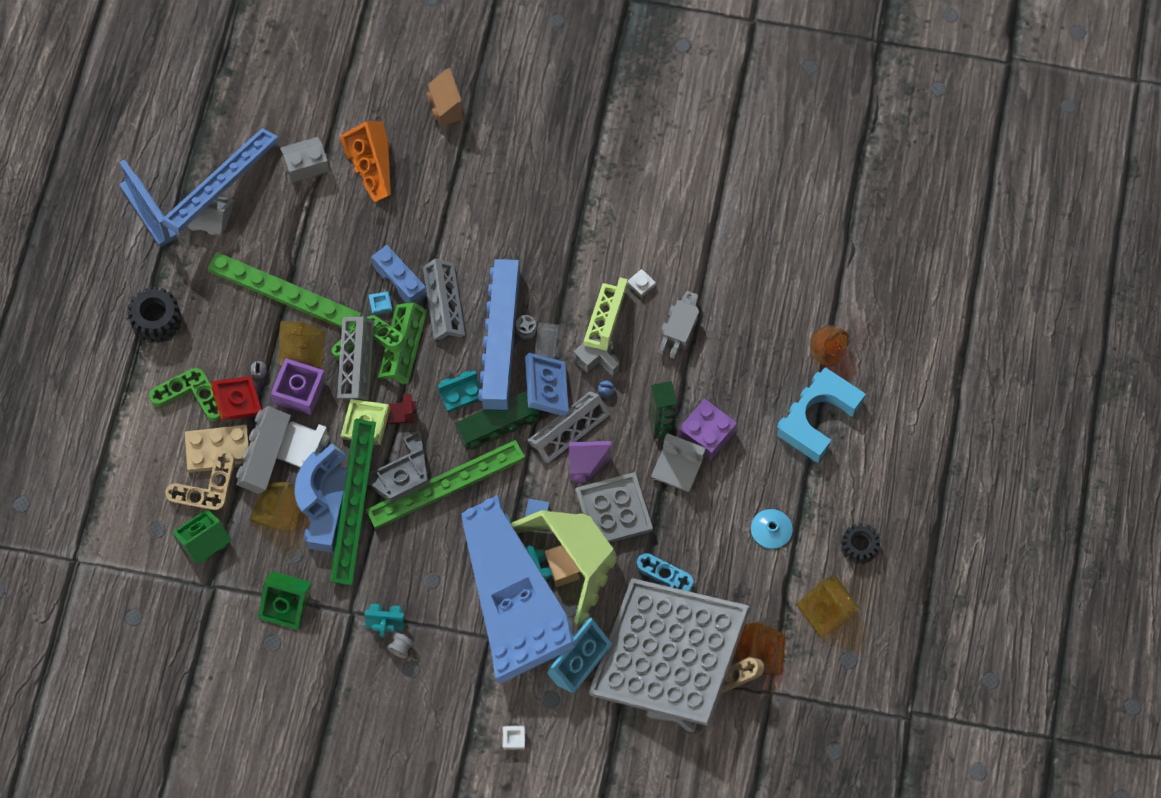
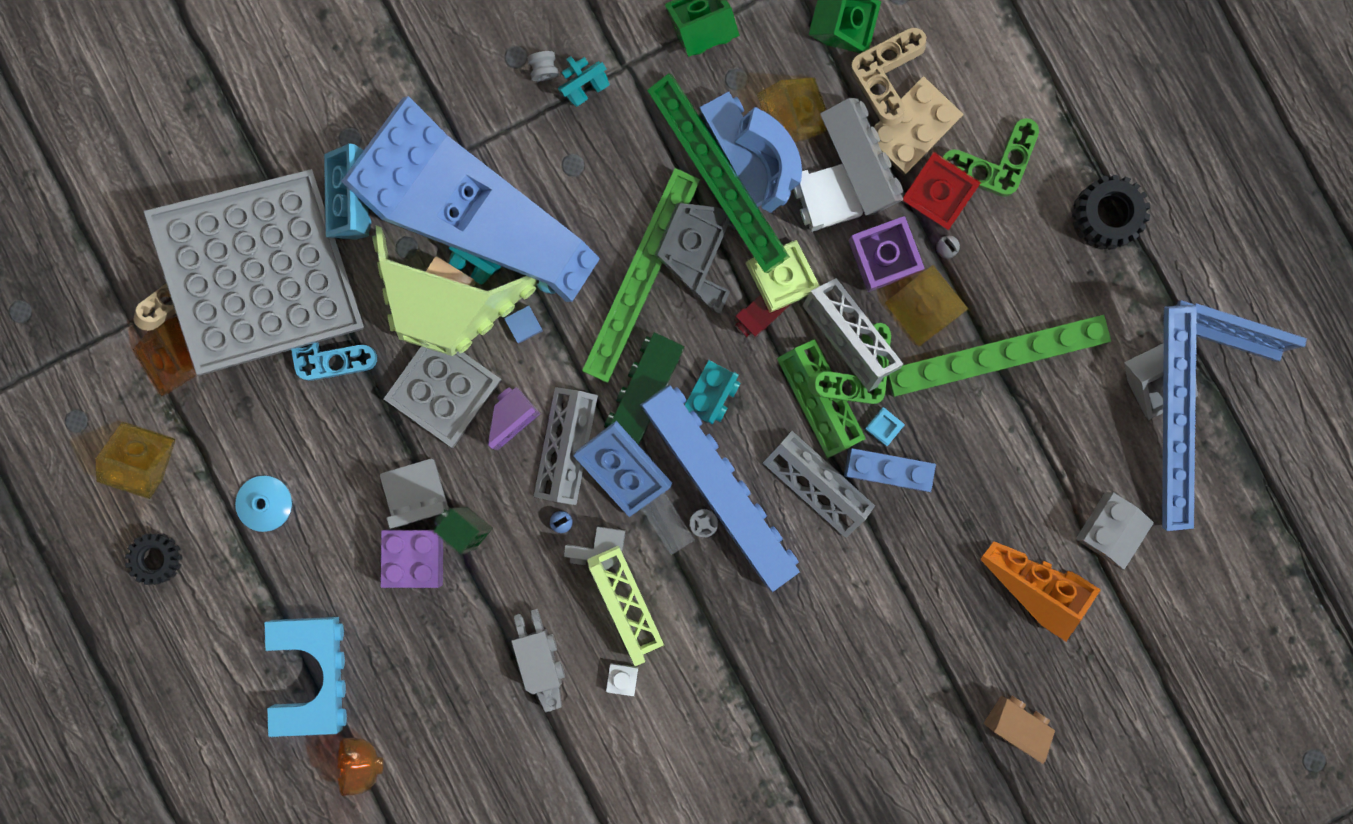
camera: 145 degrees right, 20 degrees up
(513, 737) = (351, 64): white plate -> none

